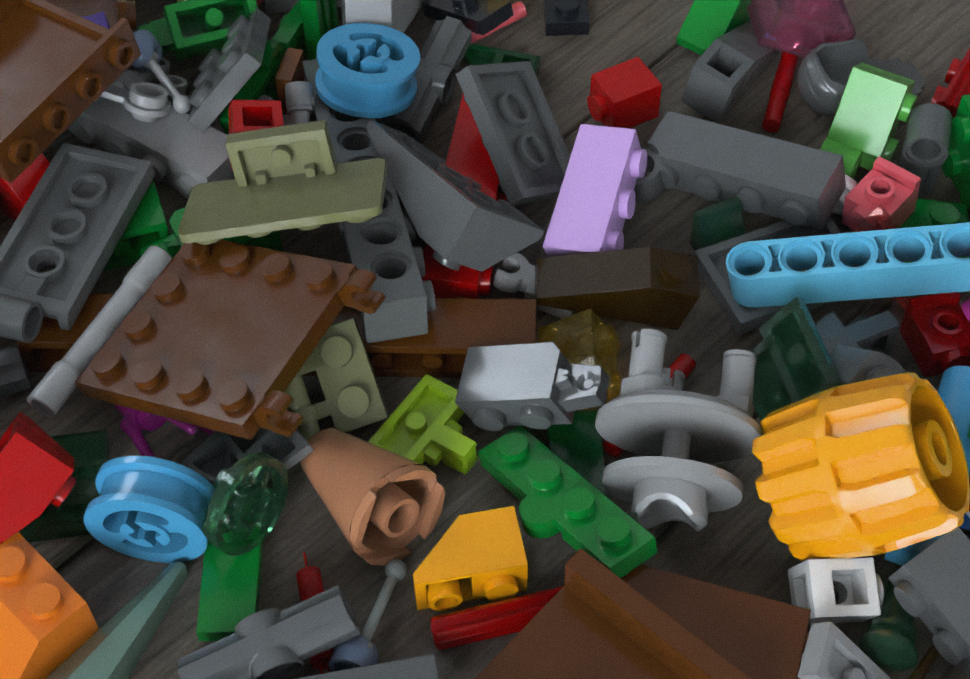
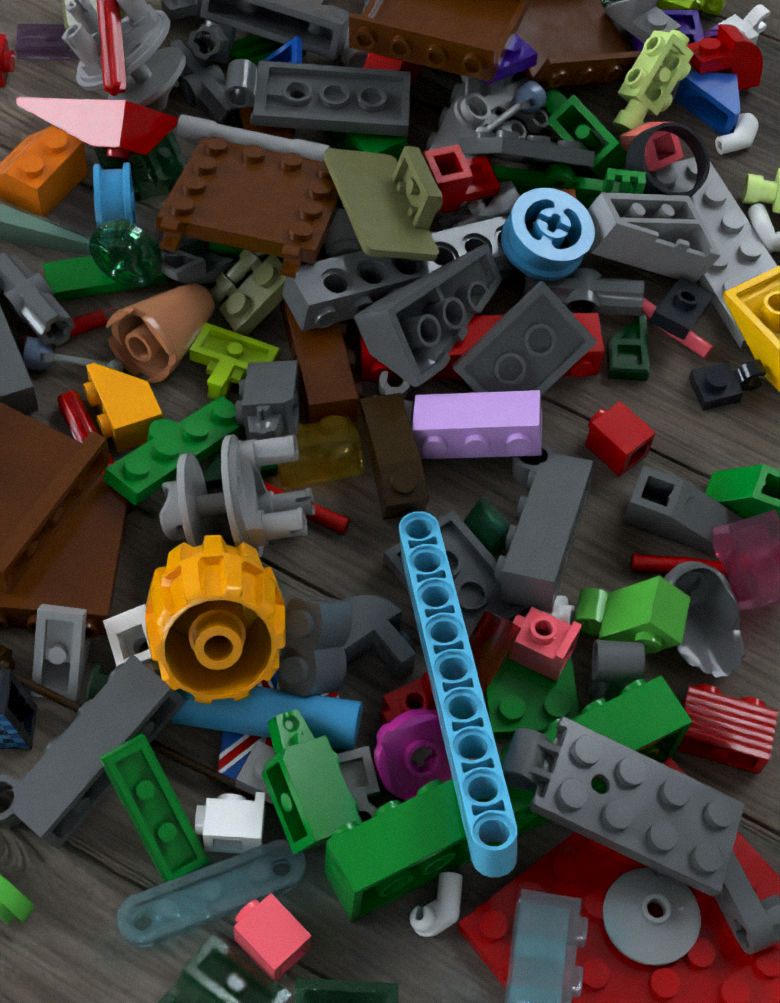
camera: 70 degrees right, 5 degrees up
(790, 360) = (329, 576): clear green slope -> none

